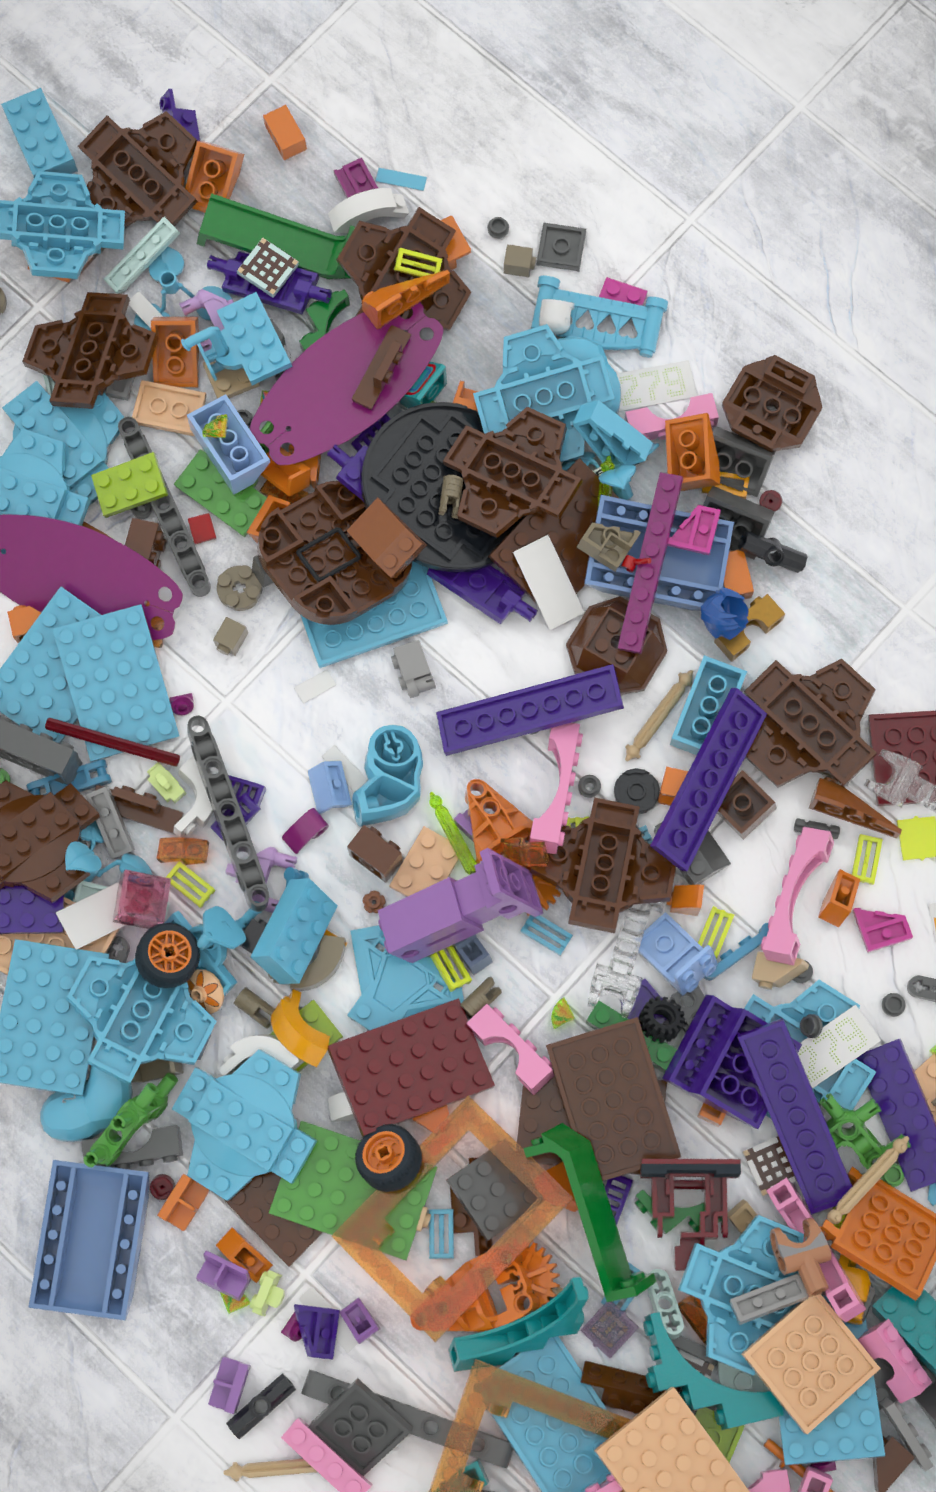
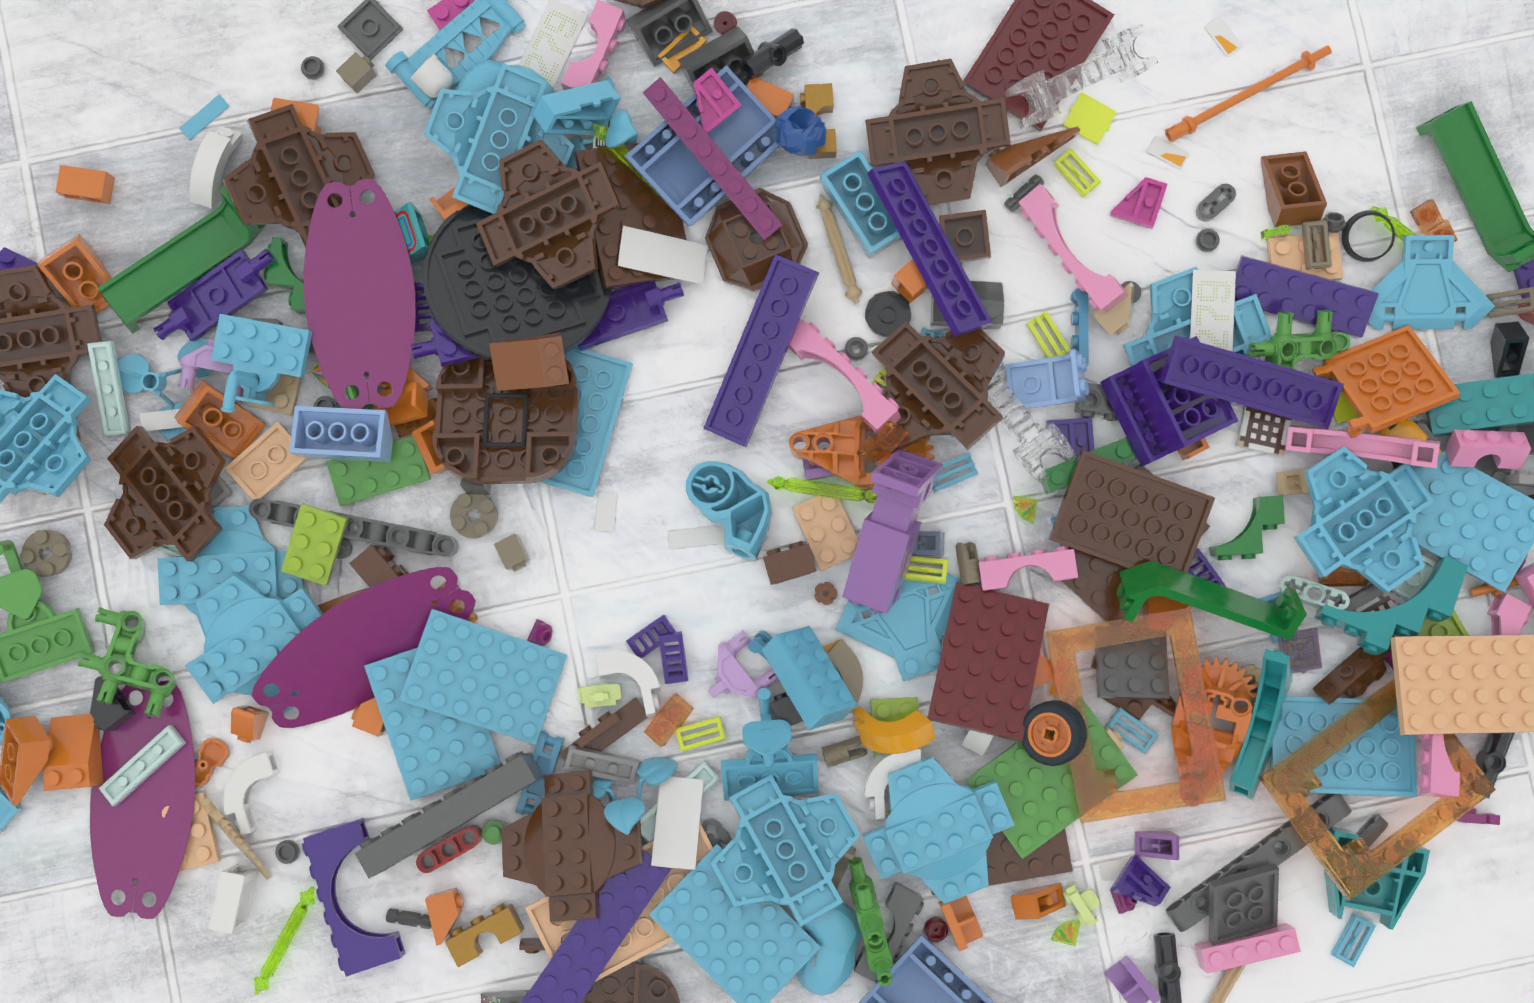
camera: 55 degrees left, 10 degrees up
(112, 742) = (534, 716): dark red axle -> none
(141, 899) = (691, 785): clear pink brick -> none
(164, 940) = (762, 782): wheel -> none
(202, 528) = (397, 509): red slope -> none
(206, 990) = (802, 783): light nougat dish -> none
(217, 427) = (321, 435): clear neon green tile -> none
(223, 1276) = (1045, 930): medium lavender panel -> none
(234, 827) = (650, 658): dark grey beam -> none
(268, 267) = (203, 288): tile -> none
(307, 827) = (724, 607): magenta panel -> none
(329, 786) = (702, 561): light blue panel -> none
(355, 178) = (176, 155): magenta plate -> none
(381, 367) = (370, 256): reddish brown bracket -> none
(395, 299) = (316, 206): orange wedge -> none
(400, 259) = (284, 170): neon yellow tile -> none
(413, 668) = (654, 420): light grey hinge -> none
(451, 494) = (529, 279): dark tan hinge -> none
(607, 544) = (672, 182): dark tan slope -> none
(631, 562) = (701, 176): red hand -> none
(666, 1009) = (1094, 420): black tyre -> none
(686, 899) = (1011, 337): orange slope -> none
(692, 451) = (637, 53): orange slope -> none
(713, 1184) = (1255, 487): dark red container -> none
(768, 1299) = (1380, 511): light grey plate -> none
(803, 1256) = (1367, 460): nougat connector -> none
(810, 1362) = (1446, 514): light nougat plate -> none
(811, 1026) = (1186, 317): dark grey plate -> none
(839, 898) = (1095, 218): orange slope -> none
(868, 1180) = (1339, 365): tan wheel -> none

